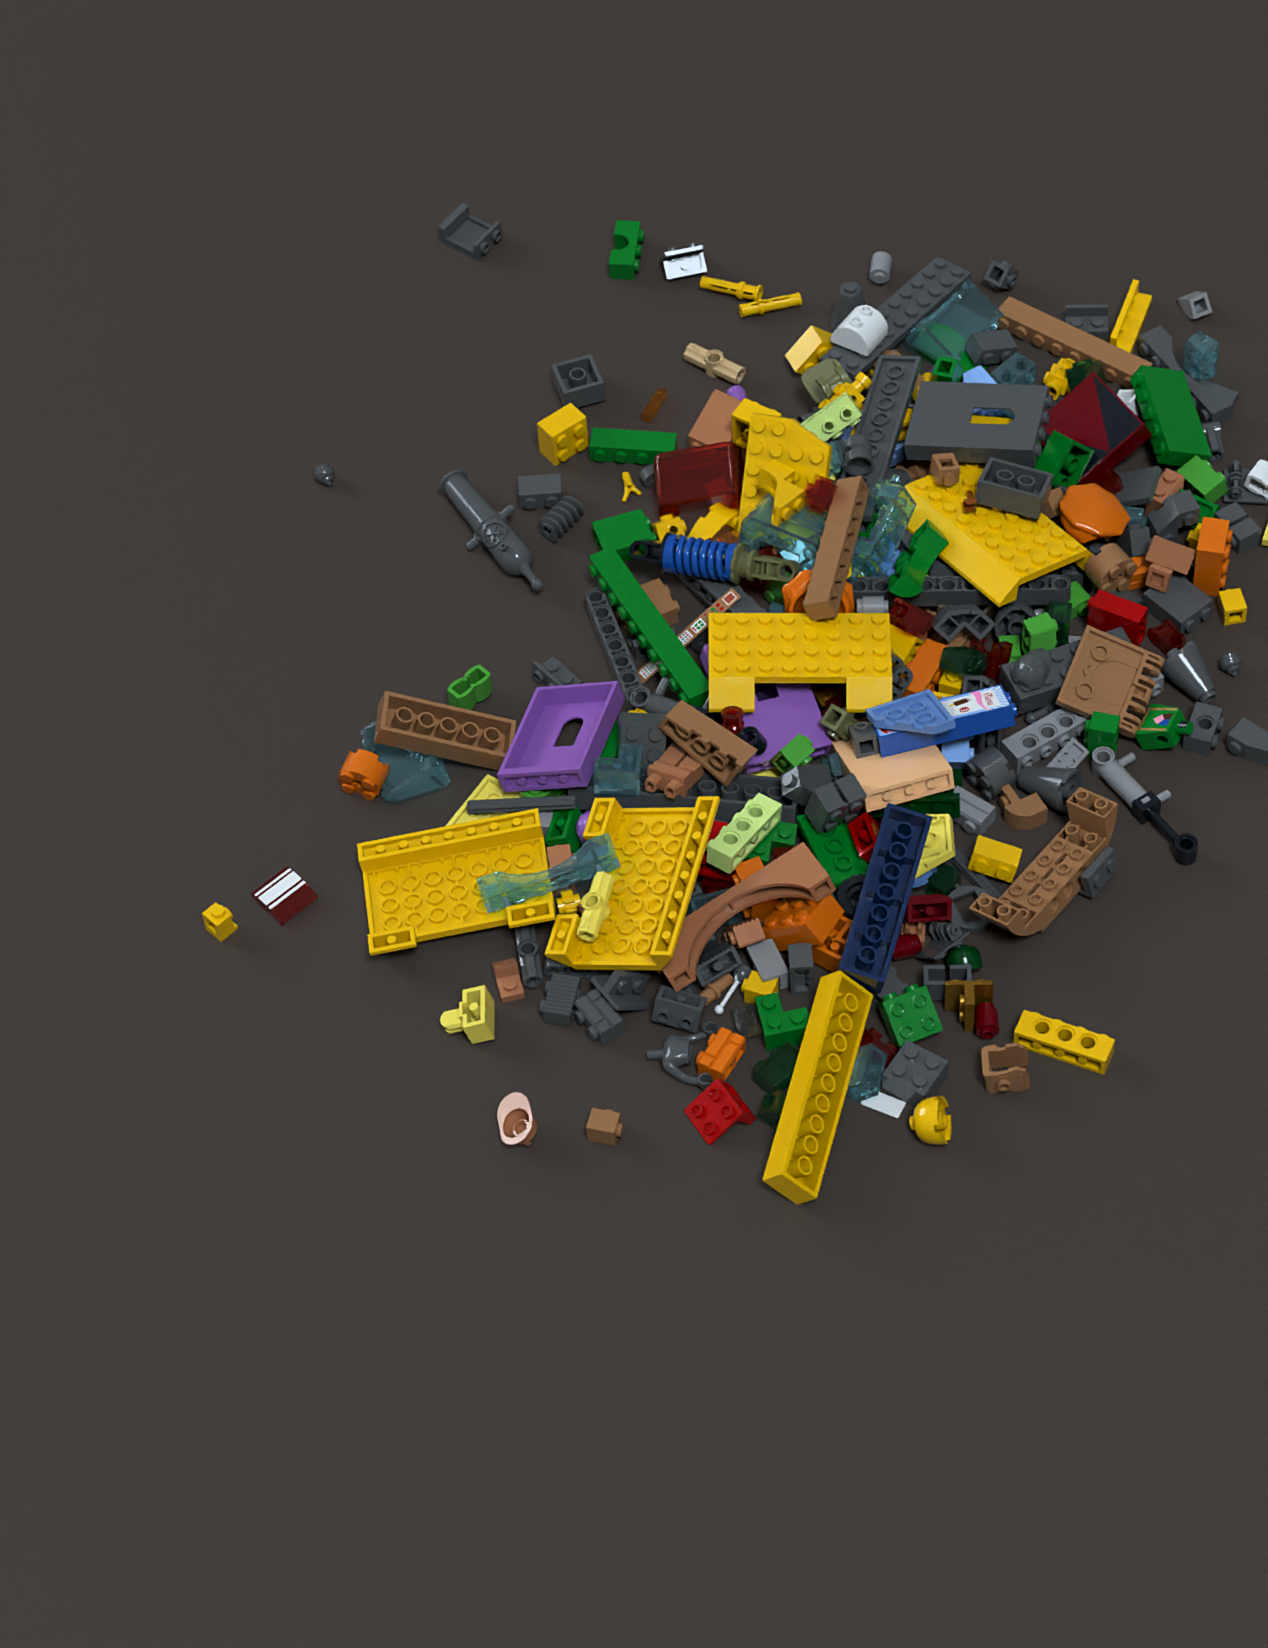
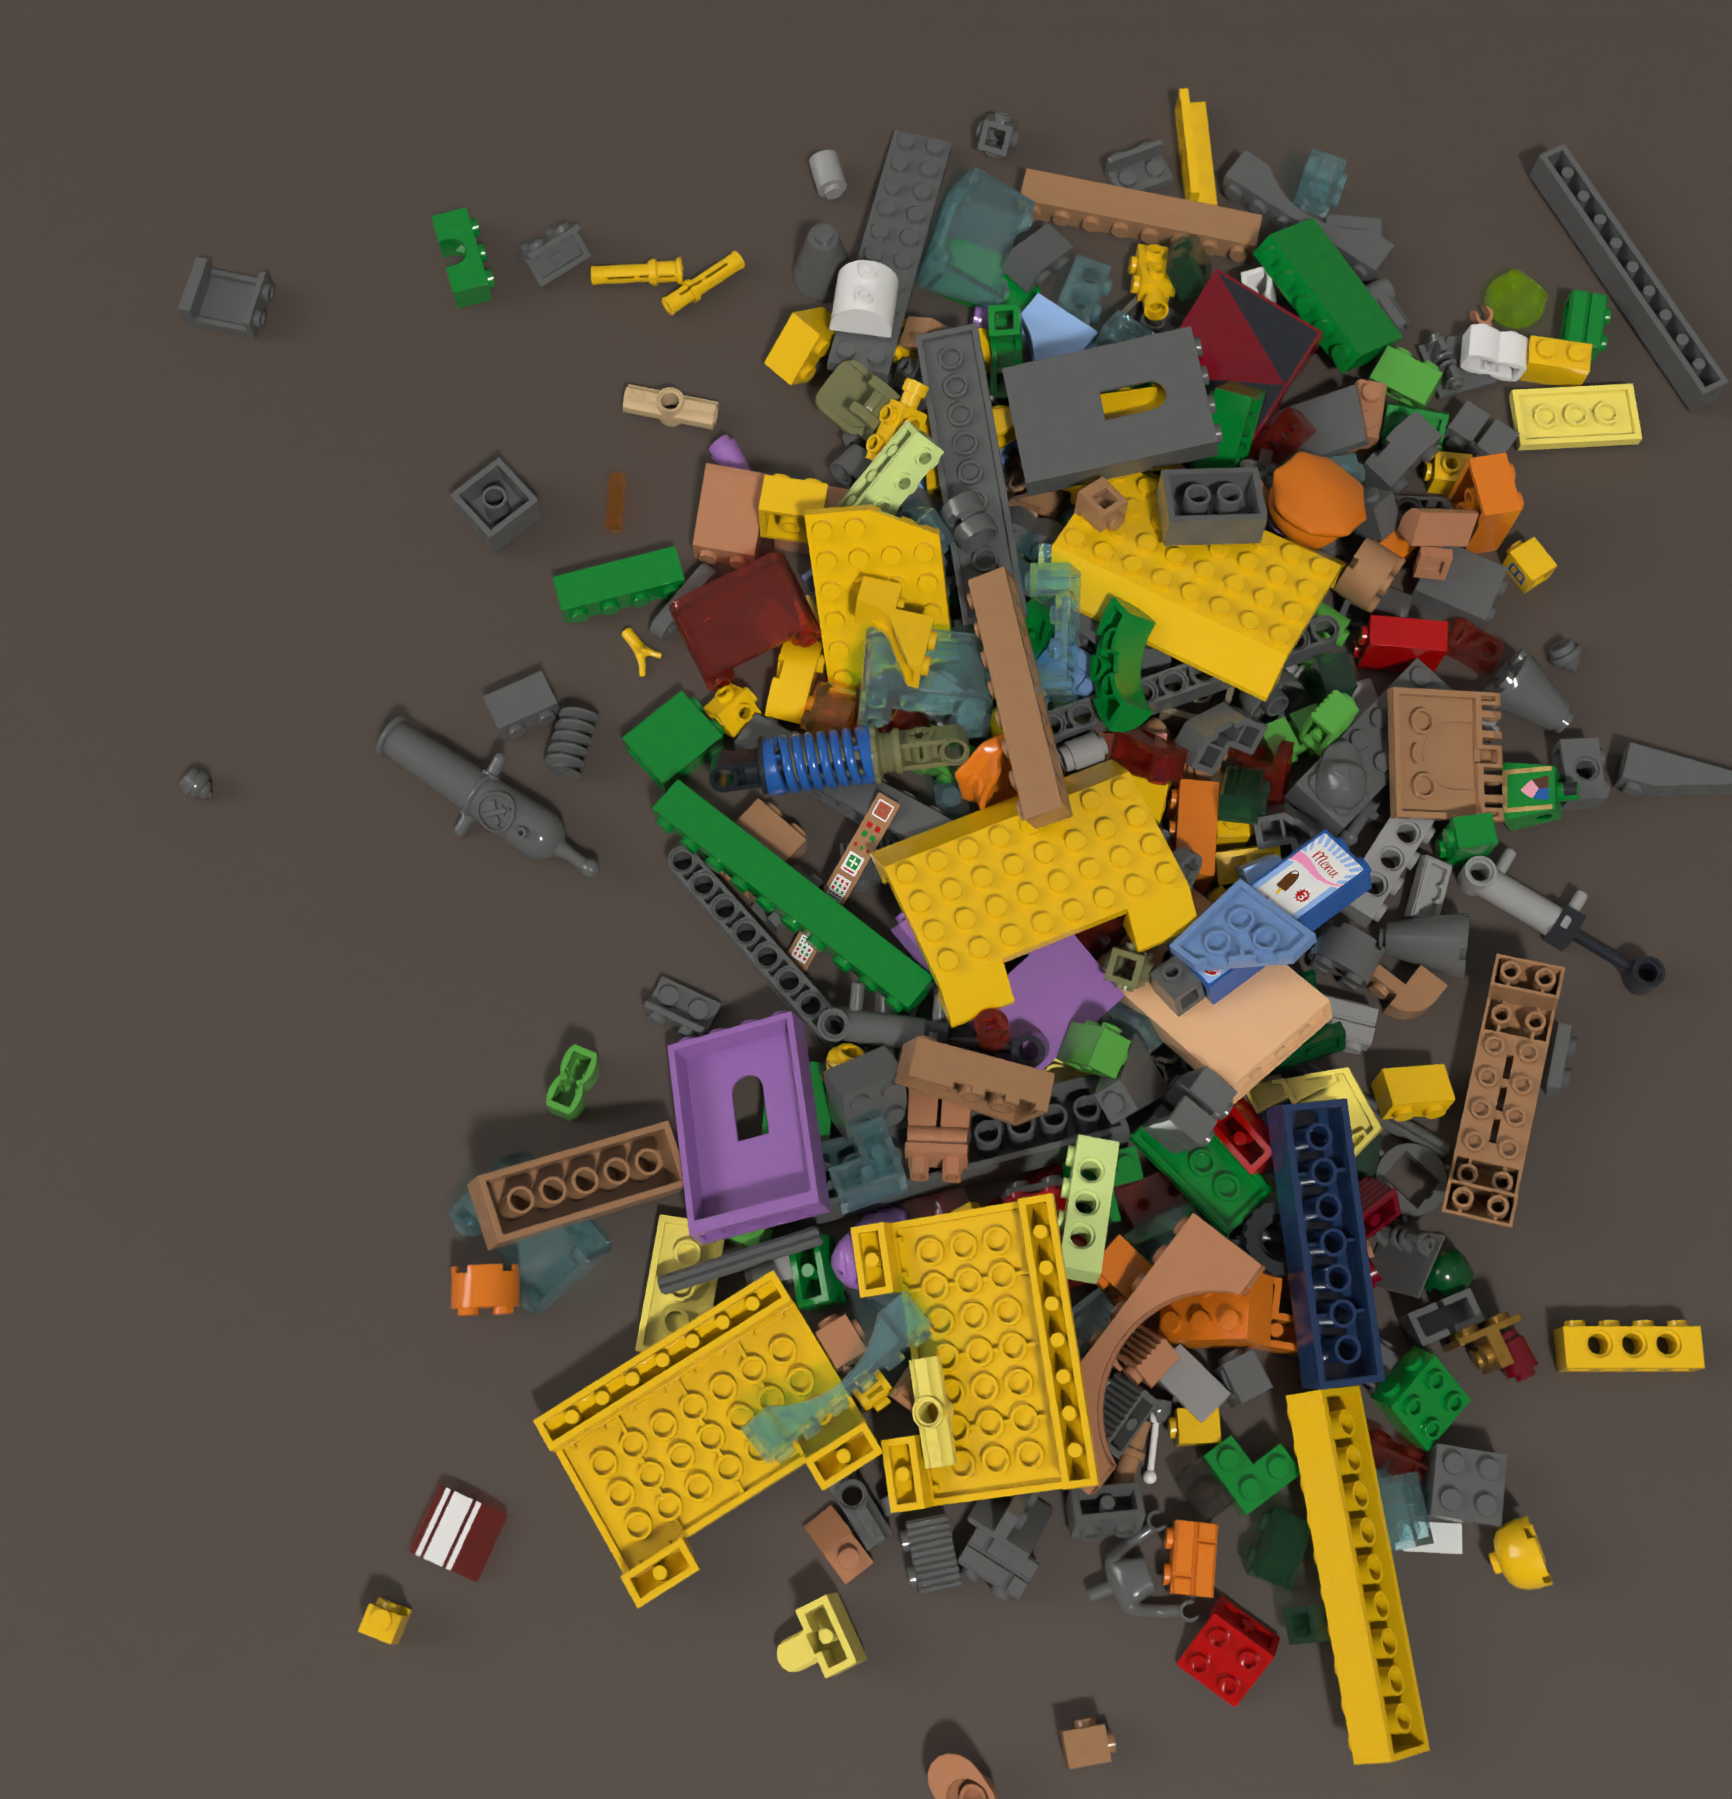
camera: 30 degrees left, 20 degrees up
(562, 434) = (516, 603): yellow brick -> none
(820, 493) = (954, 607): clear red brick -> none
(969, 504) = (1161, 551): dark orange hand -> none
(1015, 1078) = (1556, 1441): medium nougat piece -> none
(1195, 304) = (1267, 98): light grey brick -> none

